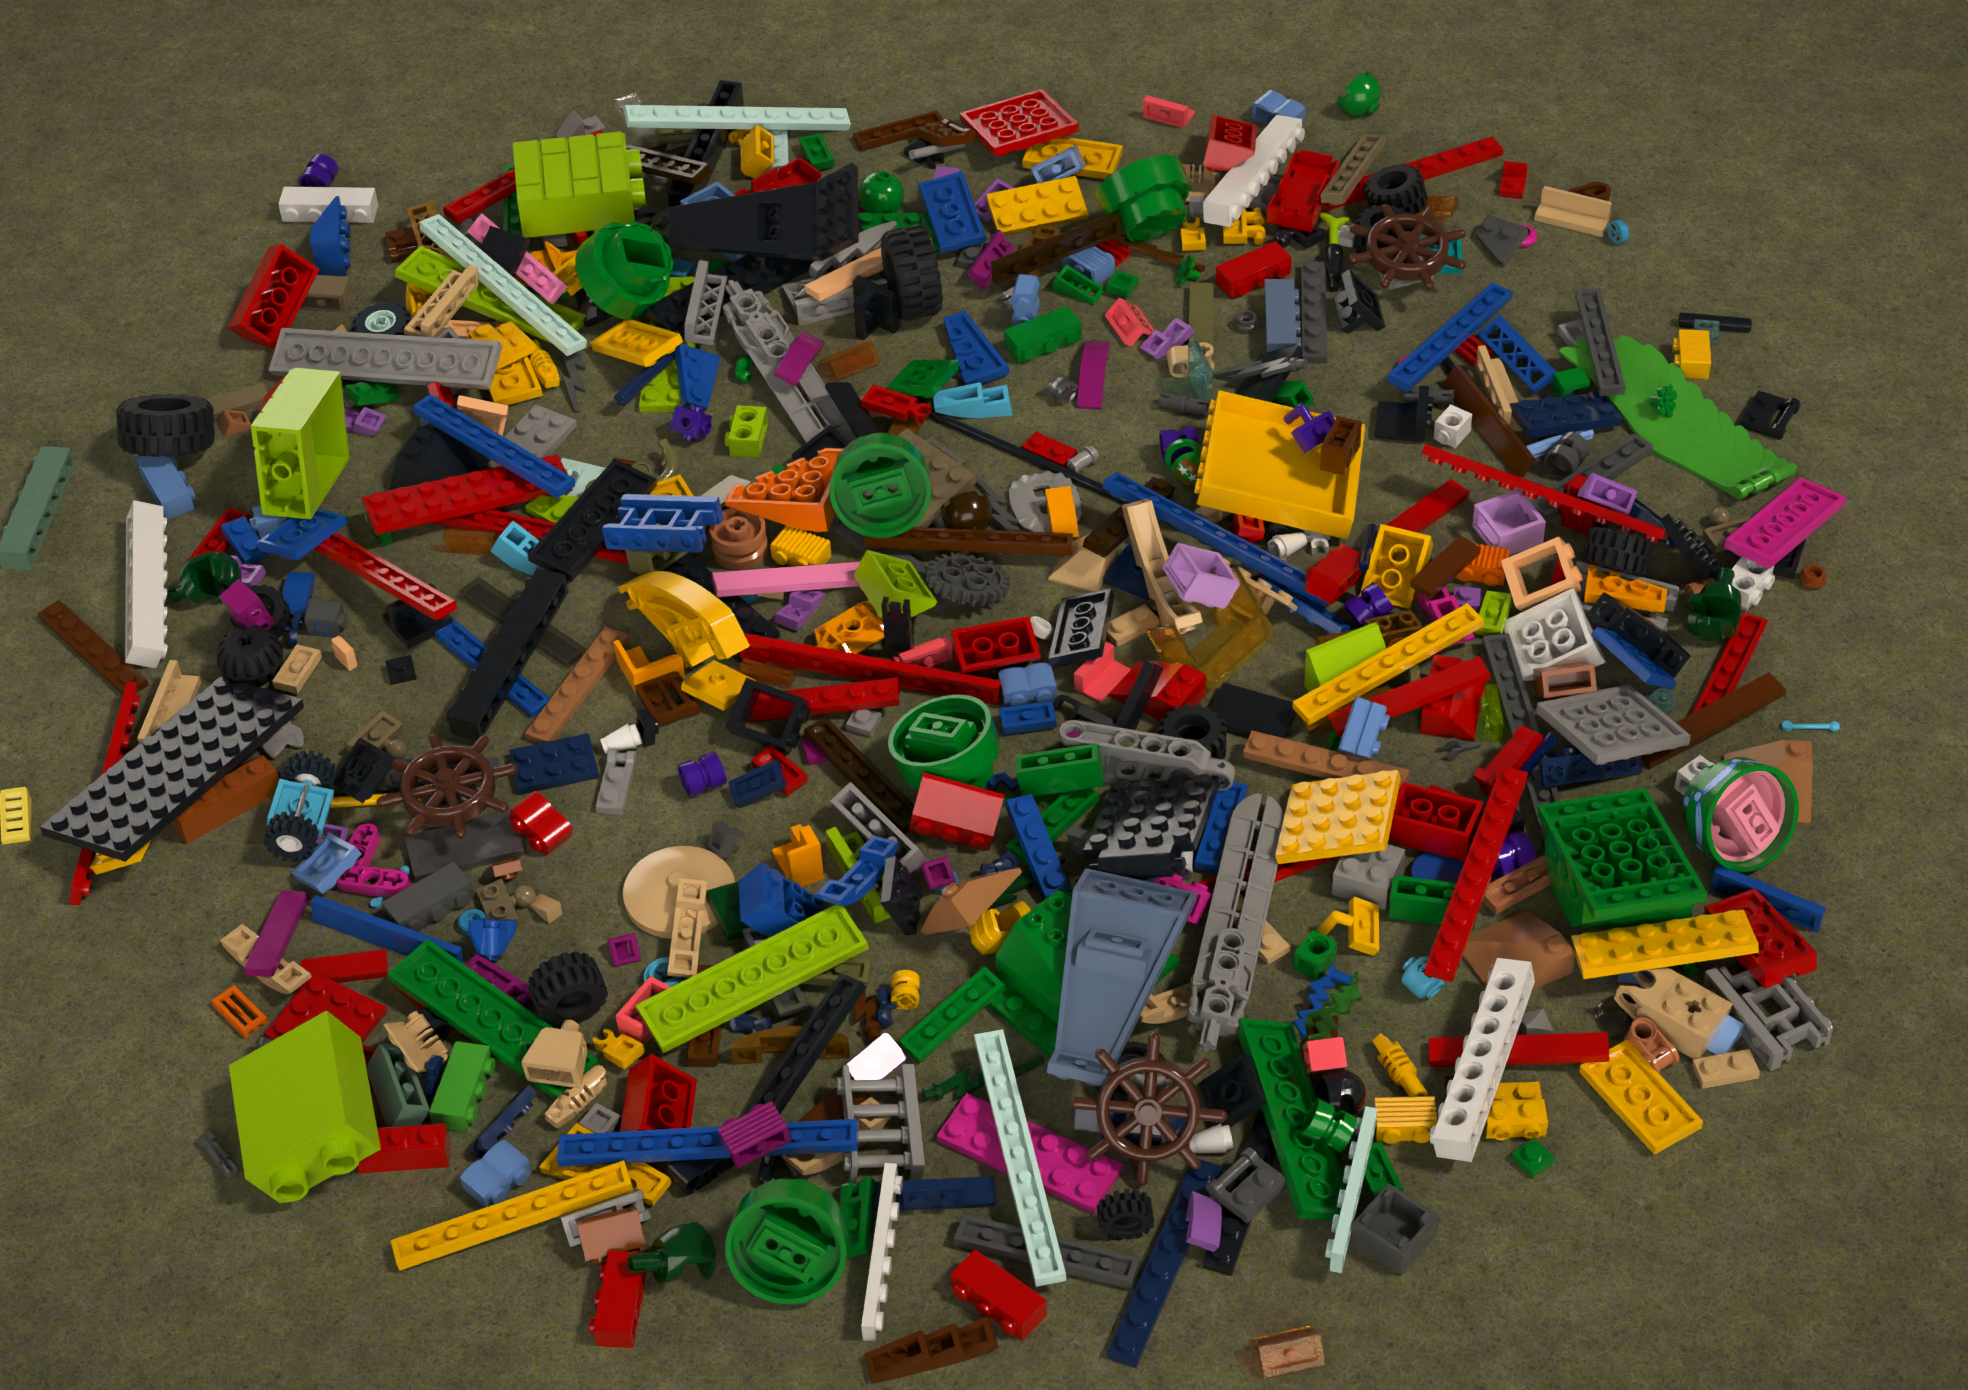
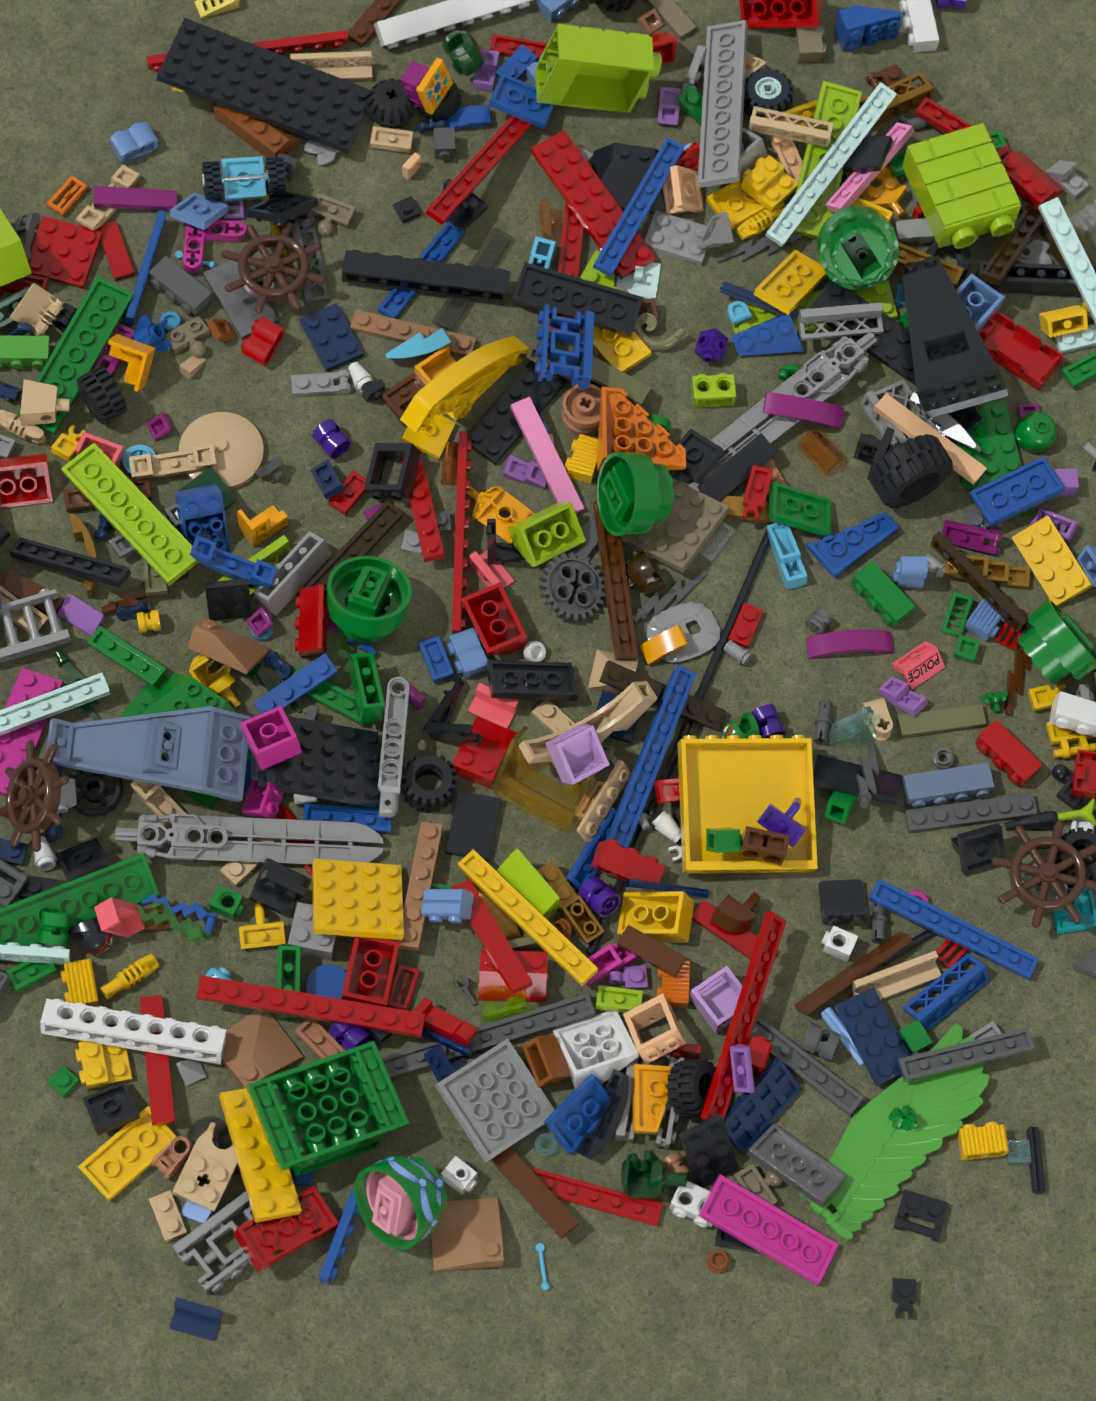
camera: 70 degrees right, 20 degrees up
(190, 926) = (133, 142): none -> medium blue brick
(260, 590) = (434, 86): none -> light orange tile
(525, 944) = (138, 357): none -> light orange panel
(545, 395) = (717, 232): none -> light grey slope
(602, 669) = (420, 345): none -> medium azure slope
(656, 393) = (738, 312): none -> medium azure tile
(1130, 835) = (270, 737): none -> dark pink brick
(1305, 897) = (278, 887): none -> black bracket
(1329, 474) = (723, 839): none -> green brick
(1406, 496) = (734, 916): none -> reddish brown brick
(1580, 1102) = (111, 1108): none -> black plate
(1711, 491) = (797, 1165): none -> flat silver tile
(1858, 440) = (904, 1293): none -> black plate
(1863, 1054) = (195, 1319): none -> dark blue panel

